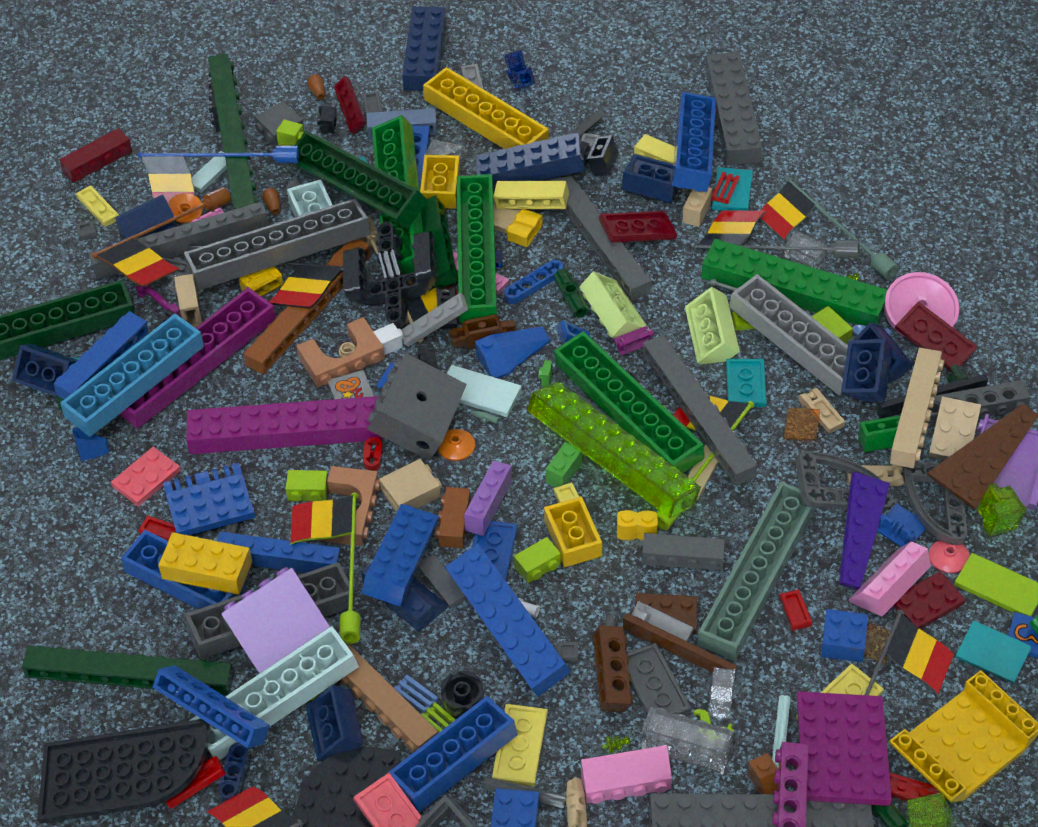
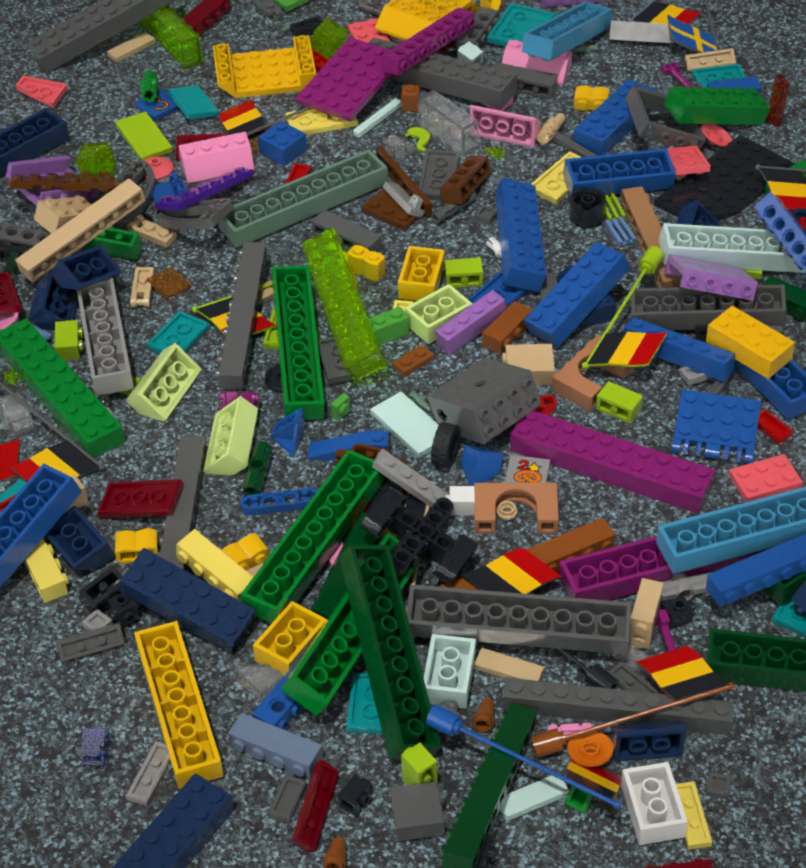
camera: 150 degrees left, 5 degrees down
(122, 187) = (654, 803): none -> white brick
(520, 451) = (413, 361): none -> dark orange plate
(525, 495) = (434, 311): none -> yellowish green brick
(612, 198) = (130, 544): none -> yellow brick

